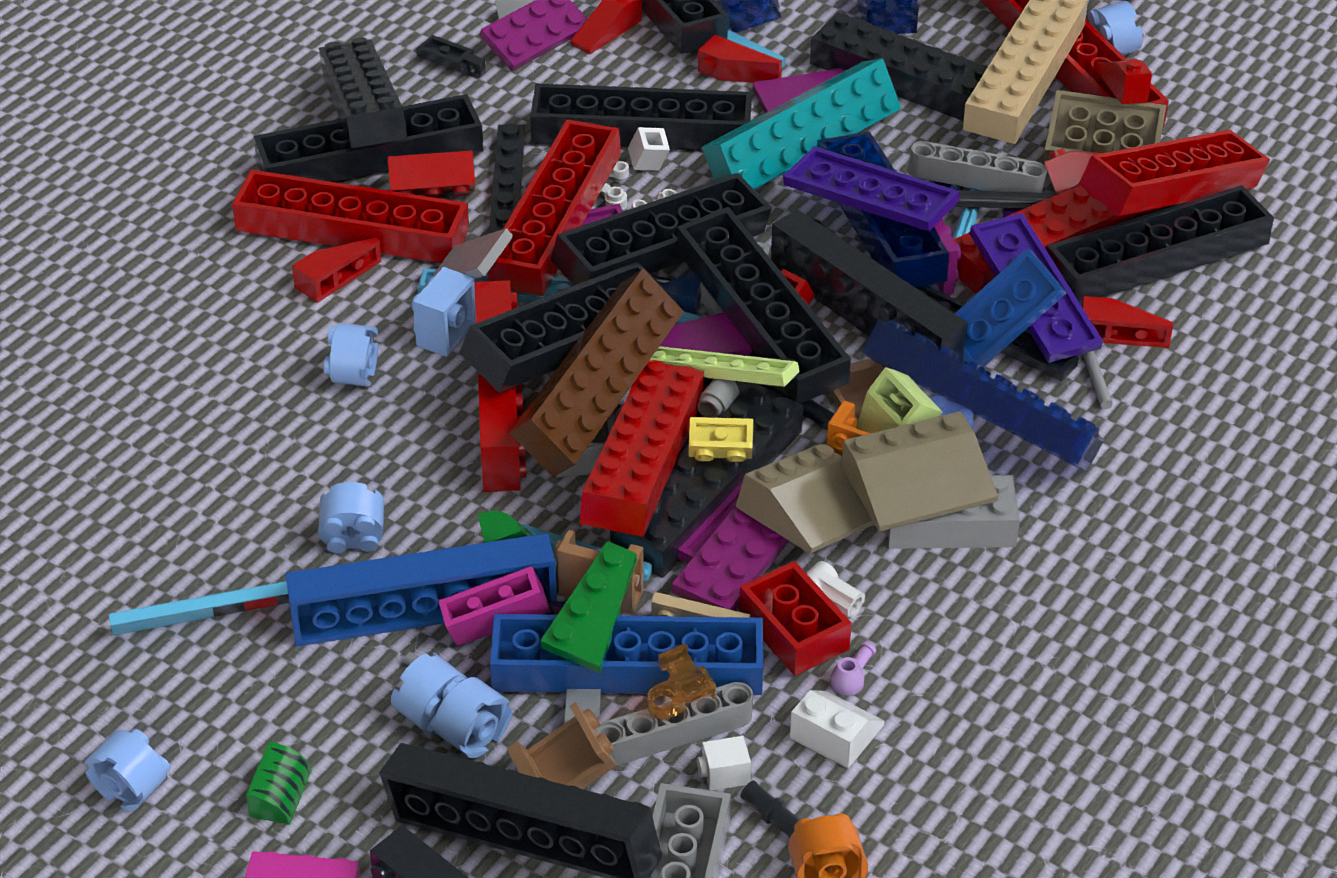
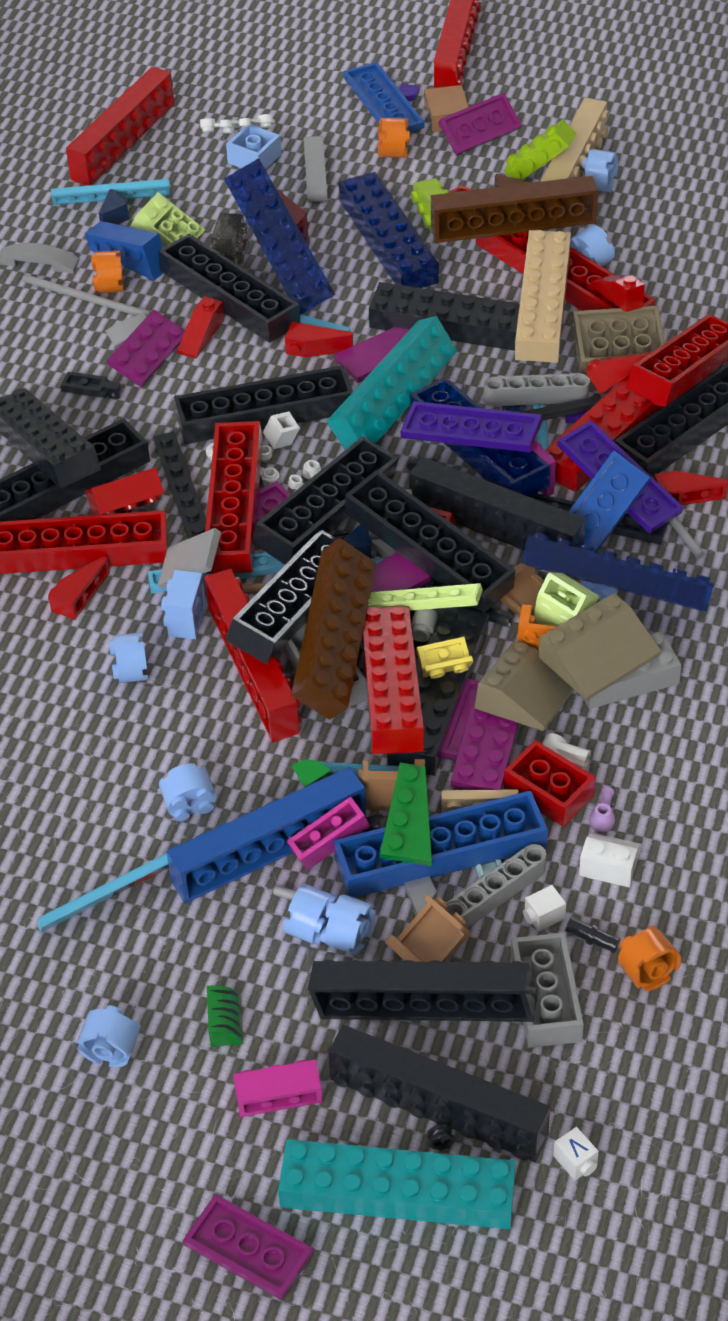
camera: 15 degrees left, 5 degrees up
(686, 686) = (495, 857): clear orange piece -> none

